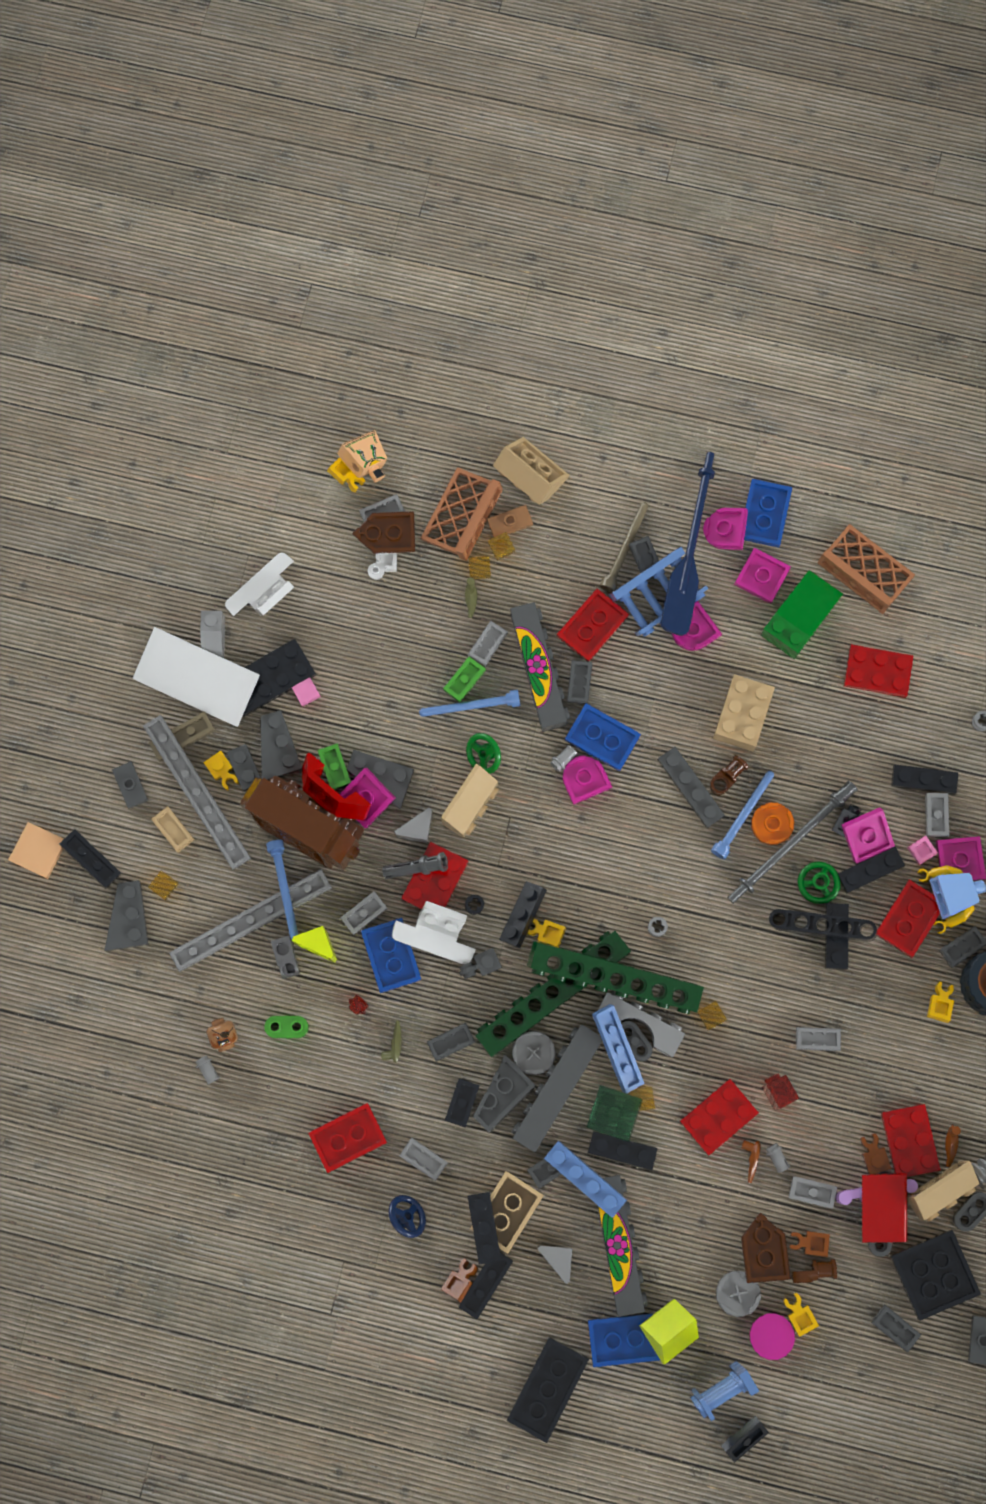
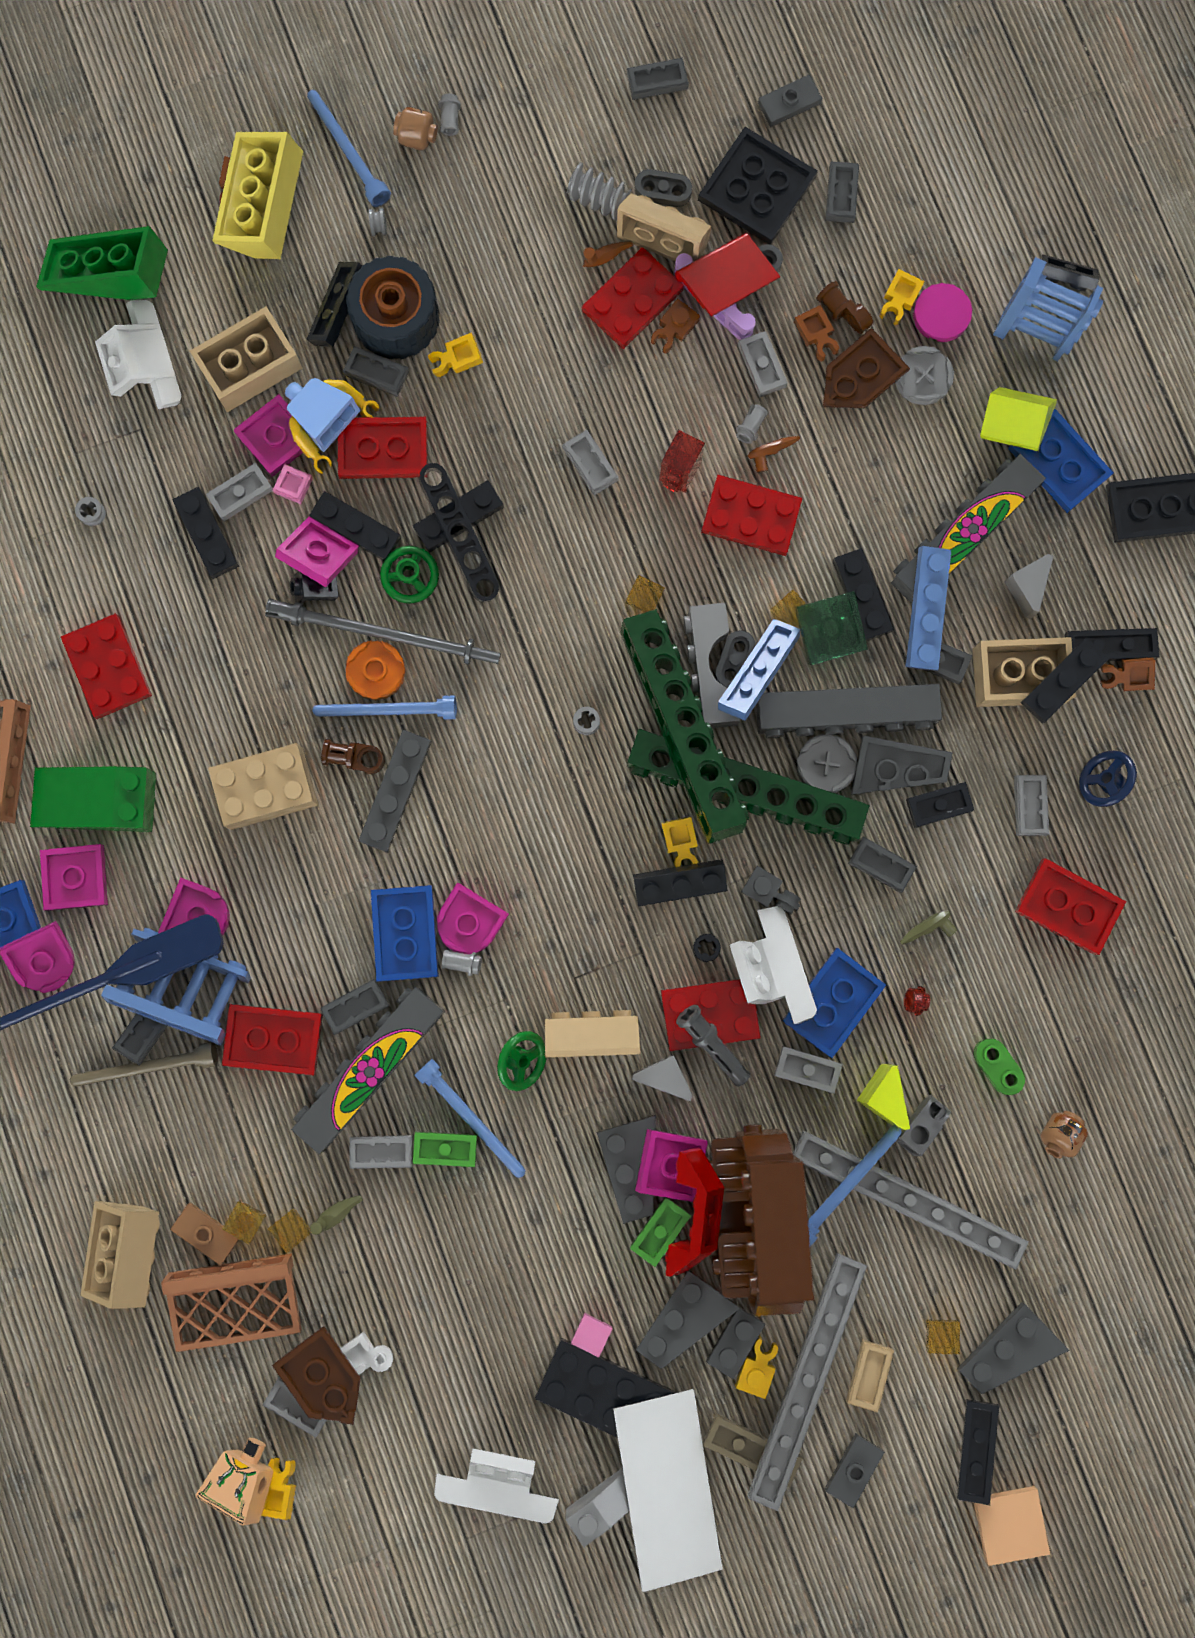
camera: 130 degrees left, 5 degrees up
(207, 1069) = (1113, 1123): light grey pin -> none

